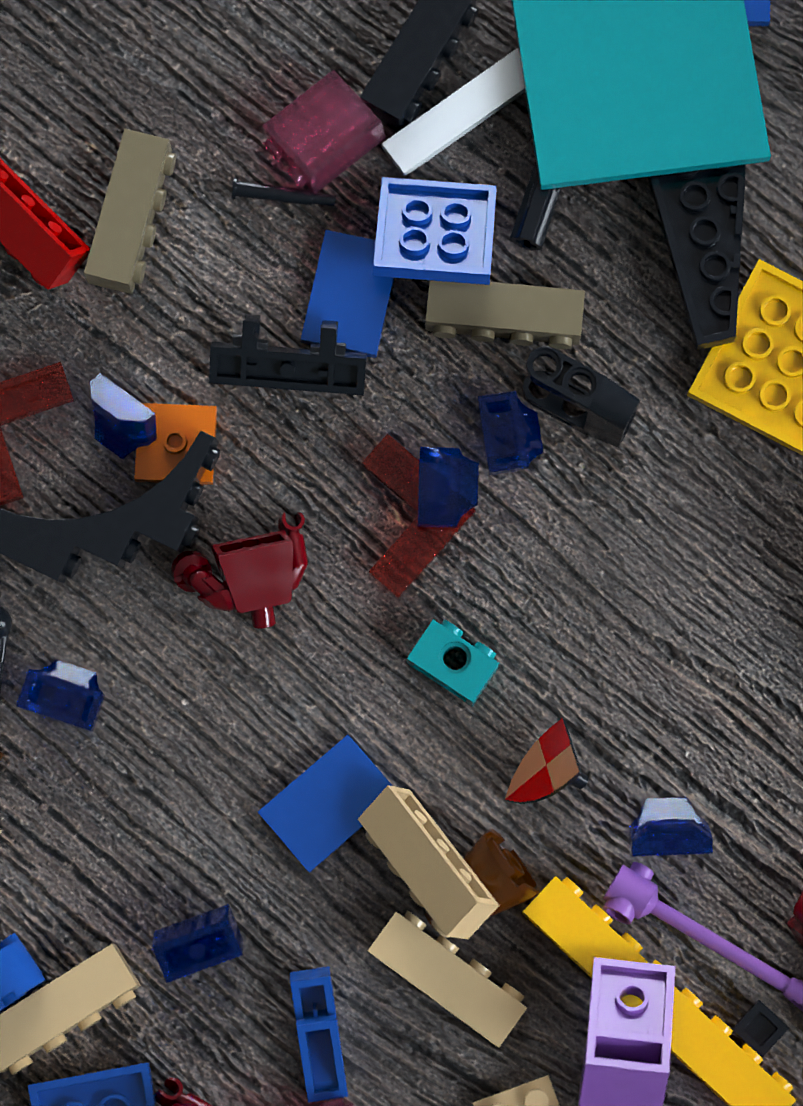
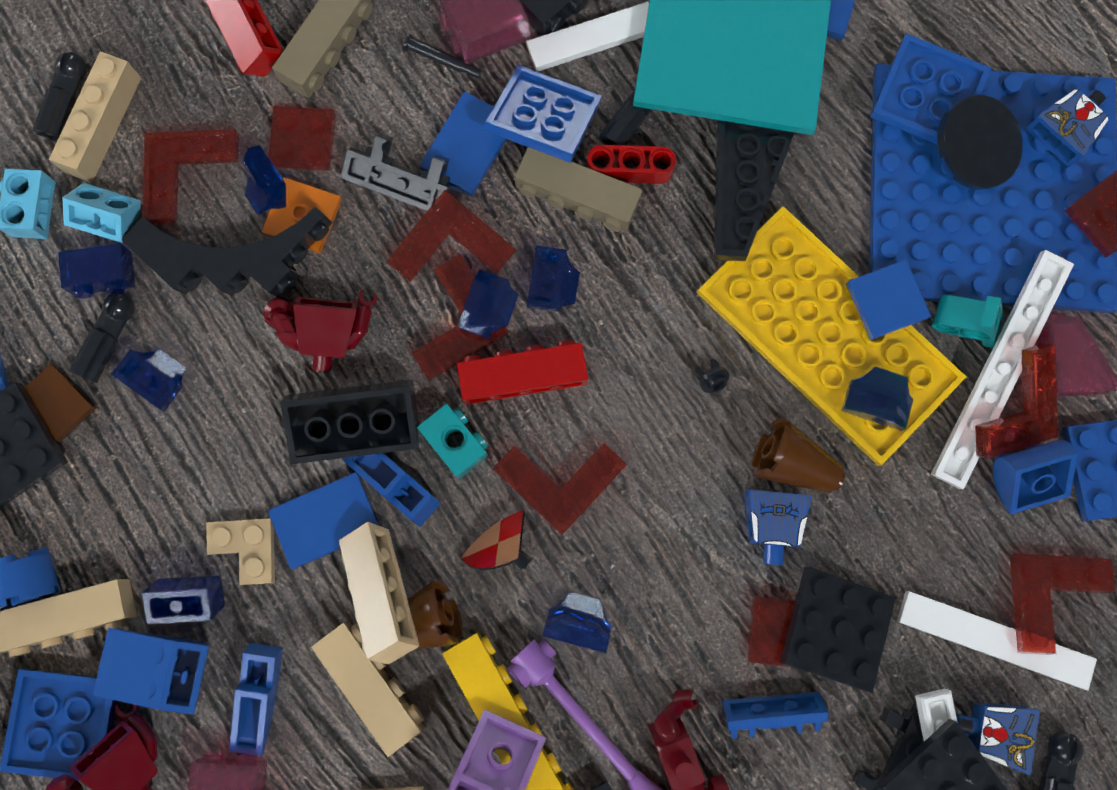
camera: 15 degrees right, 0 degrees up
(143, 346) = (302, 138): none -> clear red plate
(190, 1034) = (151, 670): none -> blue slope
(248, 853) = (252, 541): none -> tan plate
(325, 674) = (350, 421): none -> black slope
(354, 398) = (443, 219): none -> clear red plate
(395, 732) = (395, 486): none -> blue slope
(510, 555) = (522, 373): none -> red brick
(572, 248) = (642, 155): none -> red beam
(602, 700) = (558, 505): none -> clear red plate
(606, 406) = (631, 281): black connector -> none
(740, 495) = (714, 379): none -> black plate

